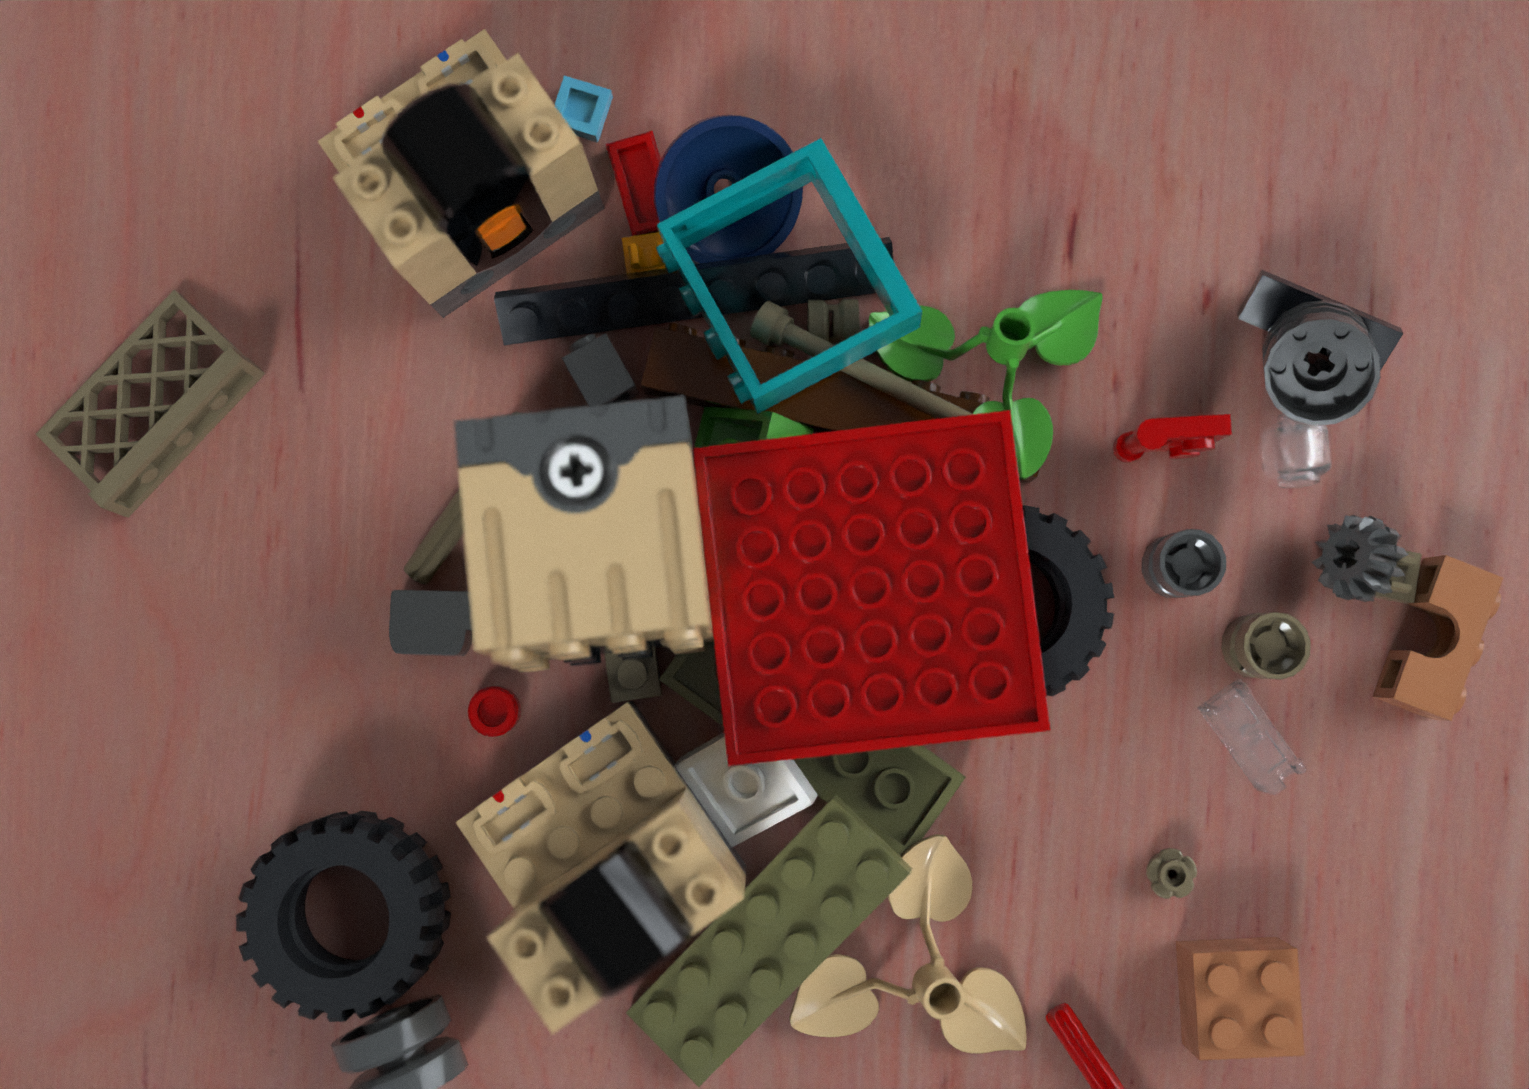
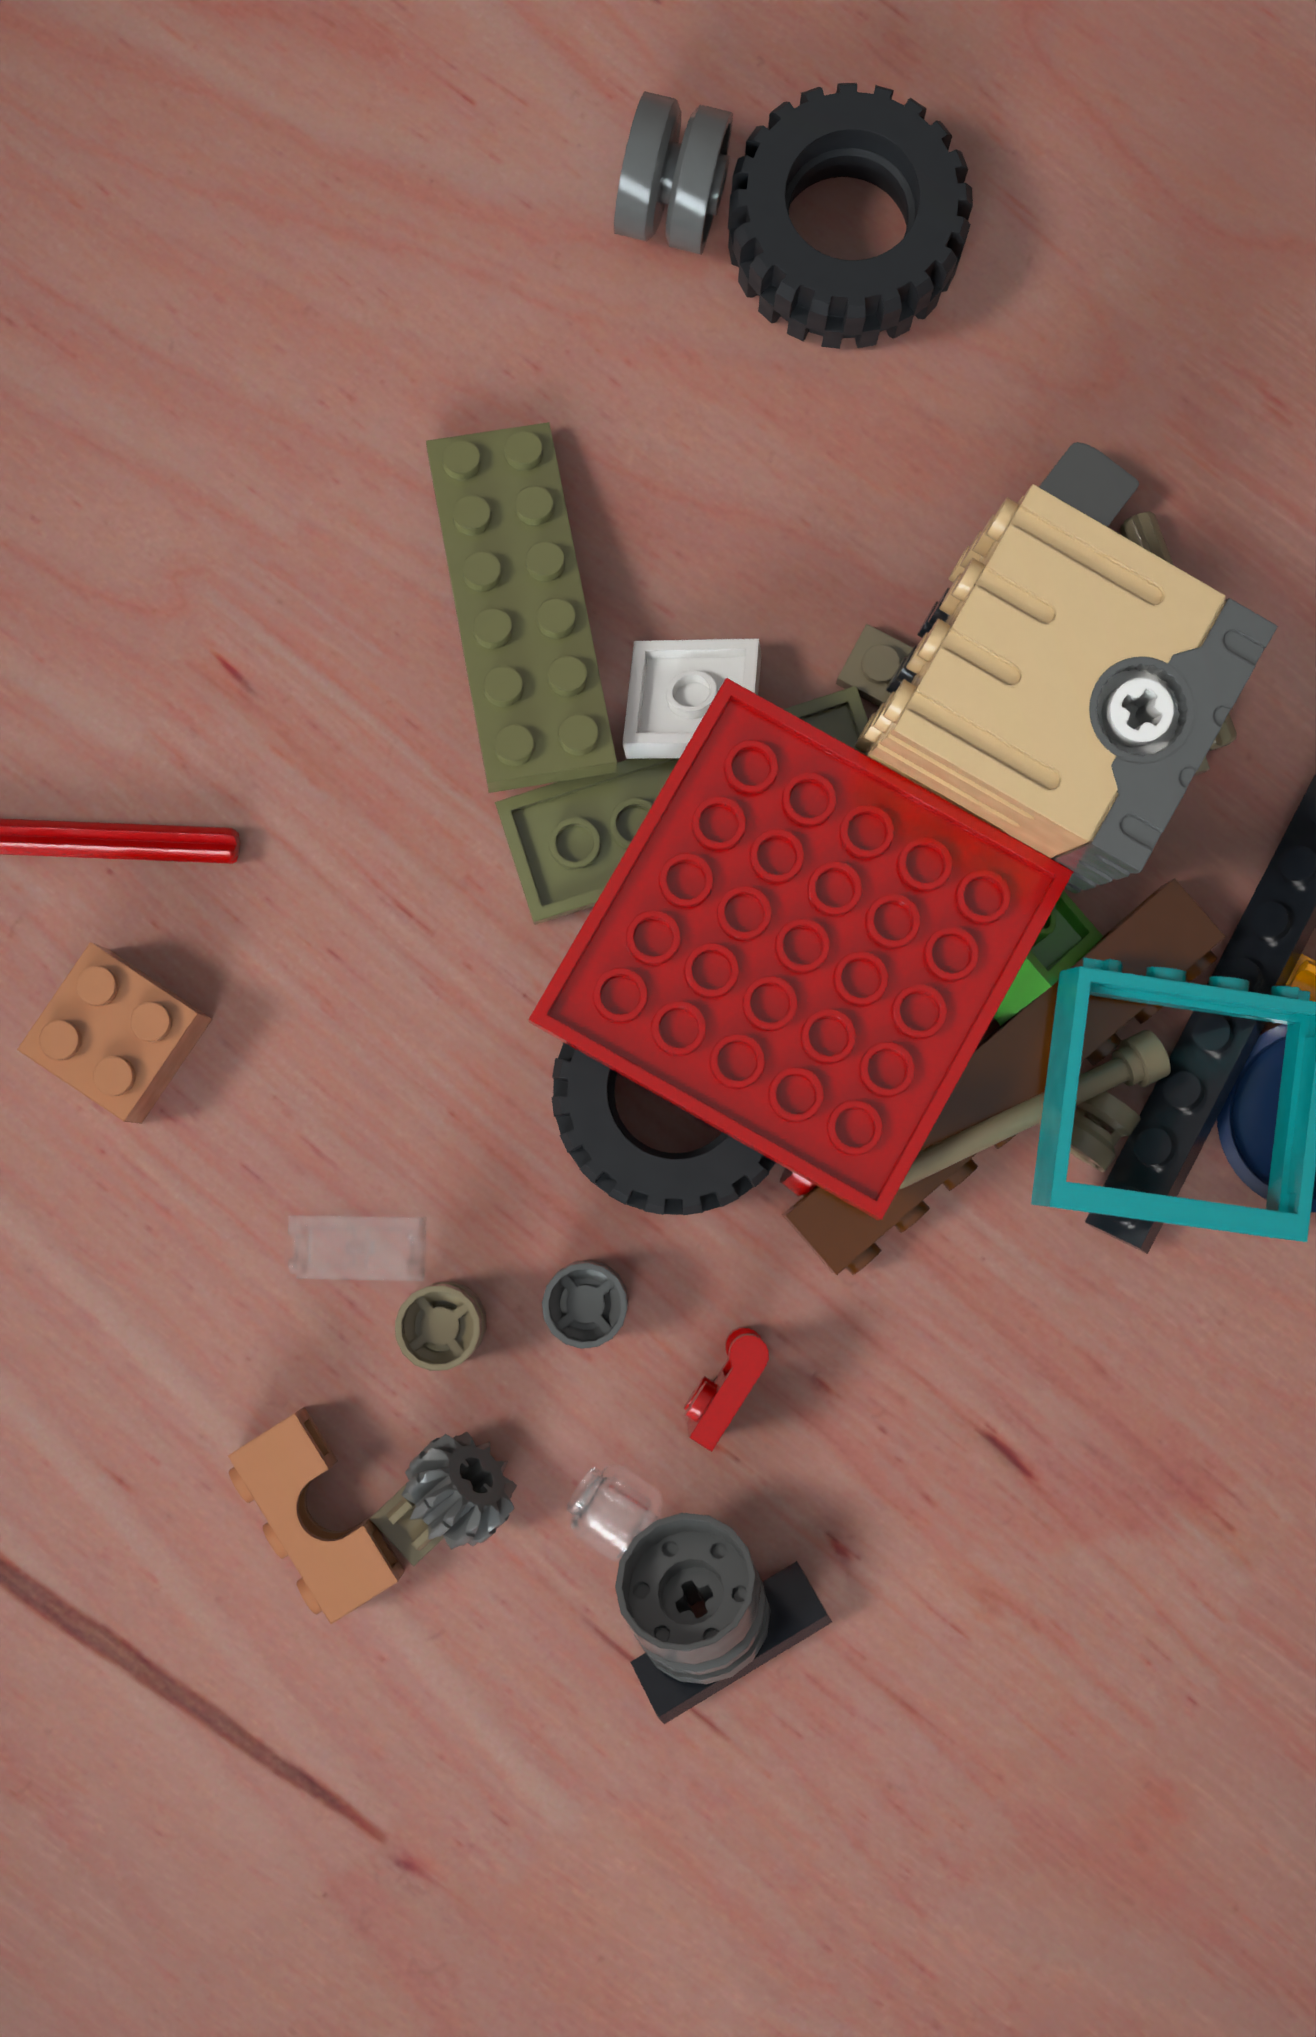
camera: 125 degrees right, 0 degrees up
(494, 711) = (941, 504): red tile -> none
(599, 371) = (1214, 849): dark grey brick -> none
(601, 866) = (723, 493): tan piece -> none
(974, 1015) = (289, 759): tan plant -> none
(1055, 322) = (930, 1362): bright green plant -> none
(1158, 870) = (300, 1062): dark tan plate -> none

